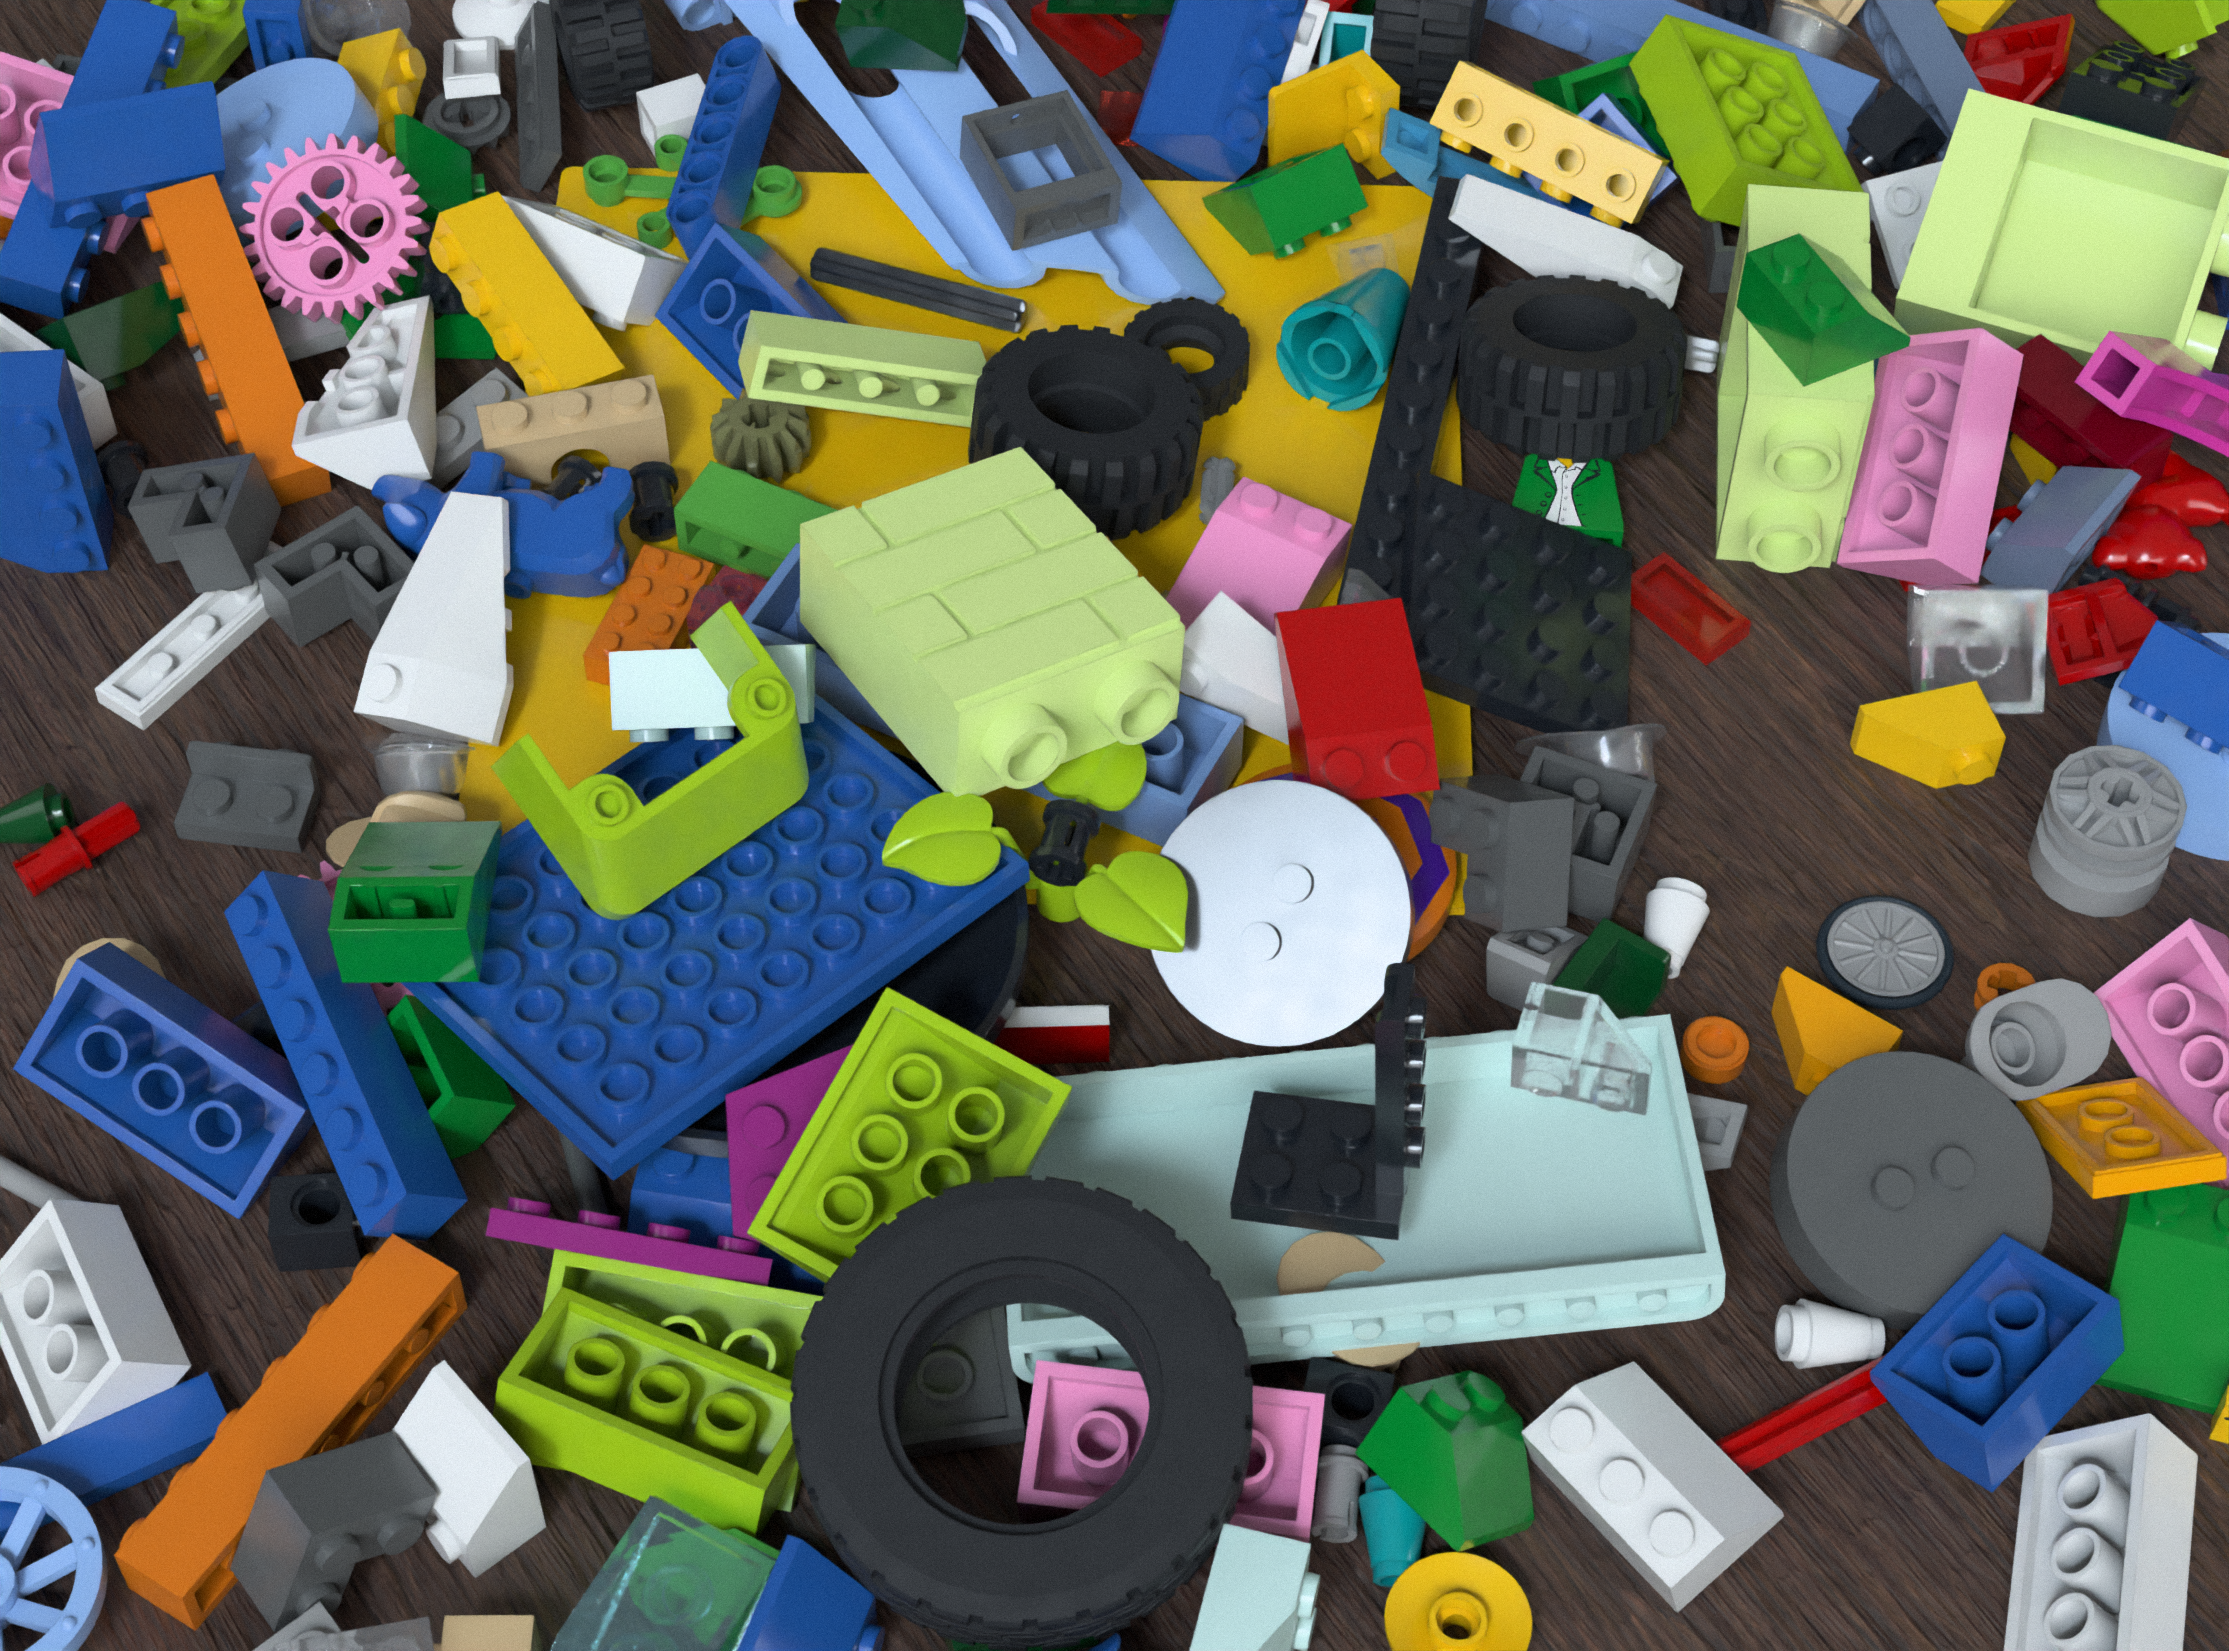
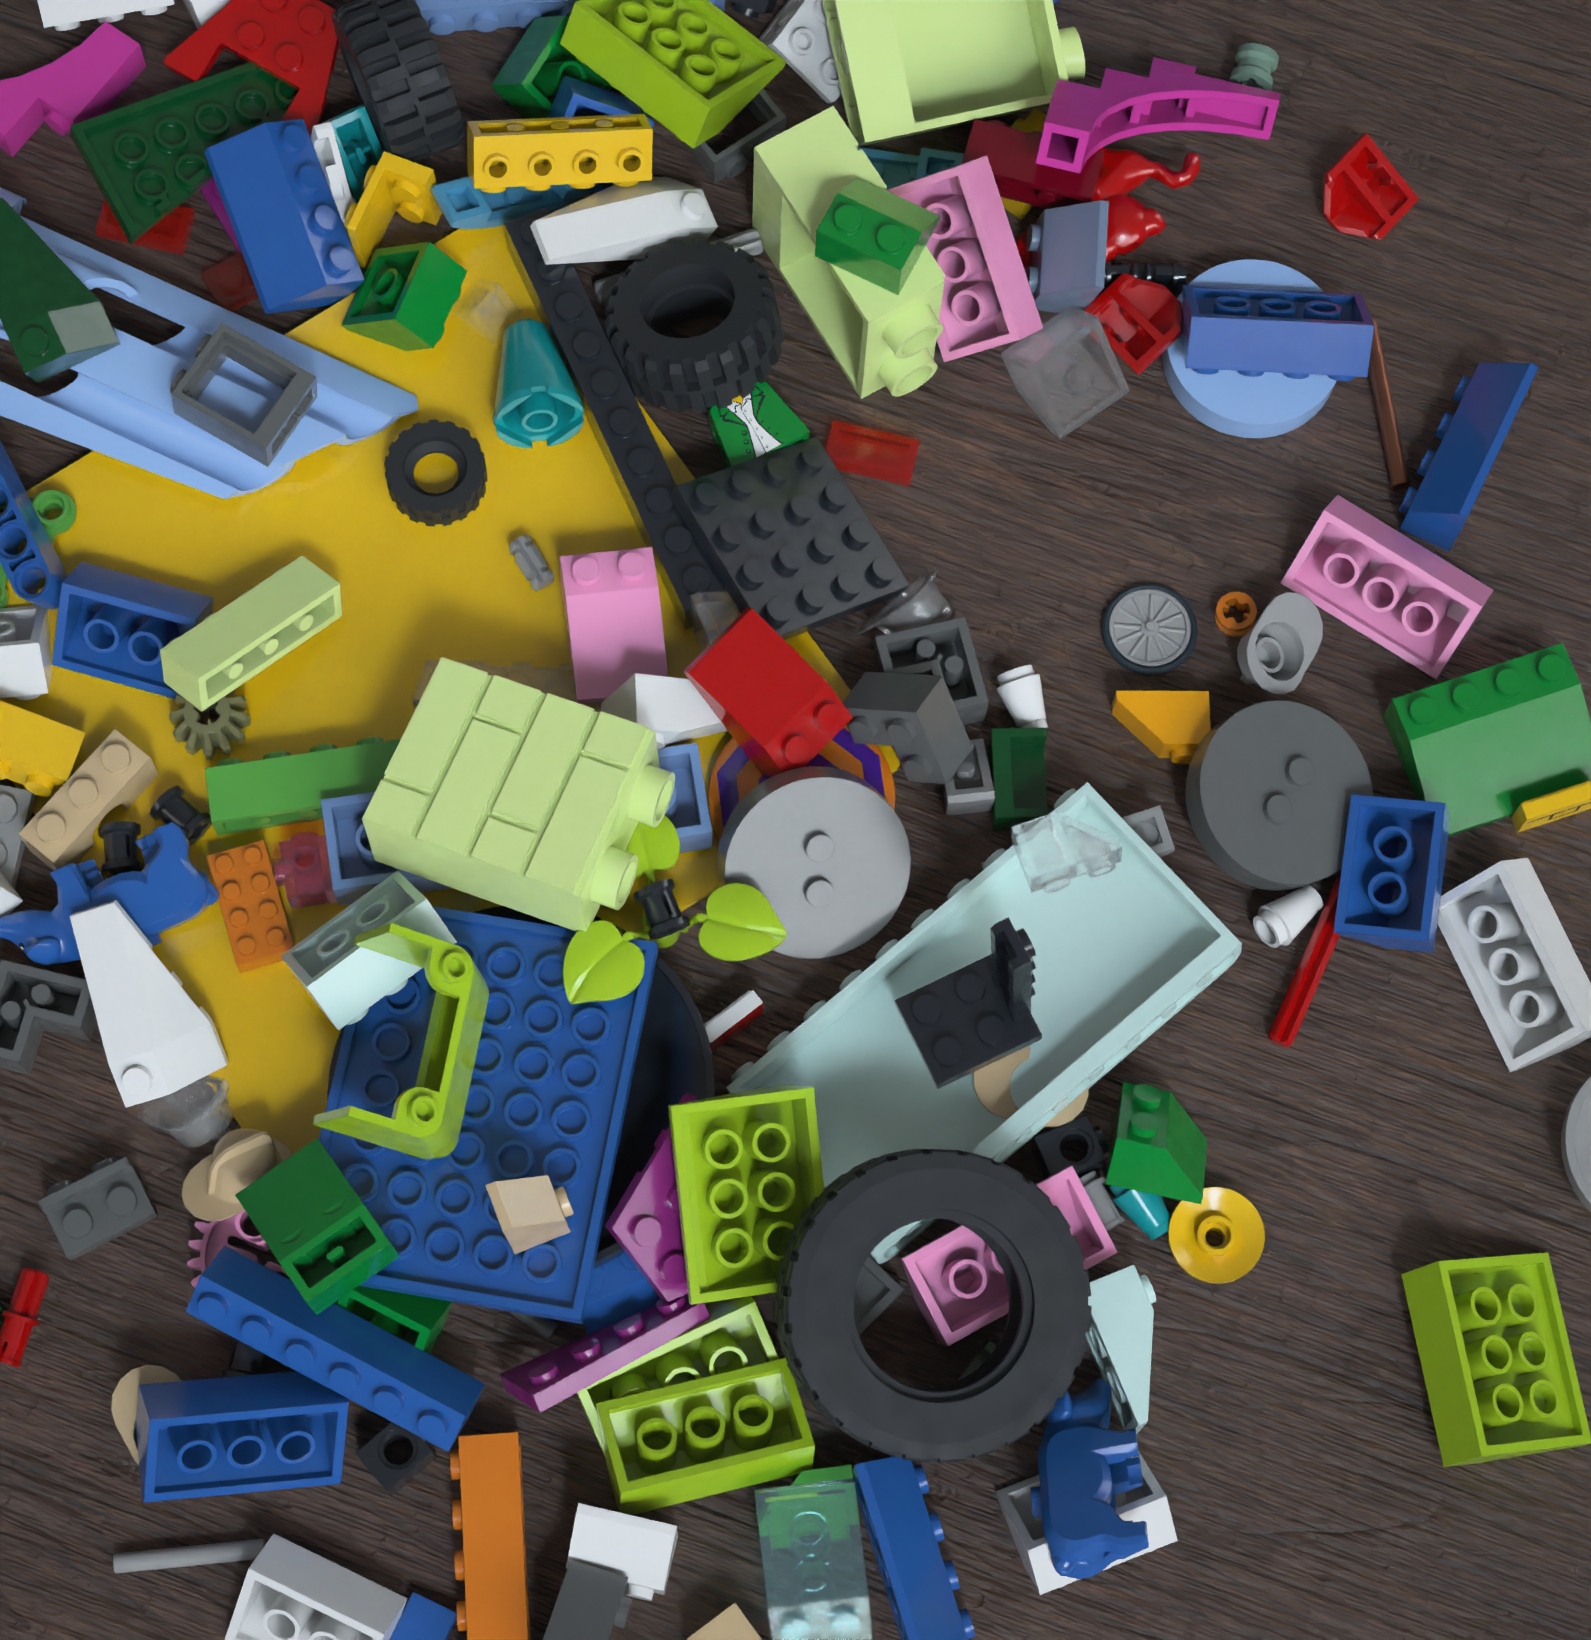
camera: 40 degrees left, 20 degrees up
(642, 1001) = (530, 1210): none -> tan slope
(918, 290) = (214, 528): black axle -> none
(1130, 399) = (424, 536): black tyre -> none
(1650, 1481) = (1261, 1076): white slope -> none
(1714, 1050) = (1100, 765): orange tile -> none
(1932, 735) = (1085, 456): yellow slope -> none
(2106, 830) = (1224, 488): light grey wheel -> none
(2122, 1138) = (1370, 682): light orange tile -> none

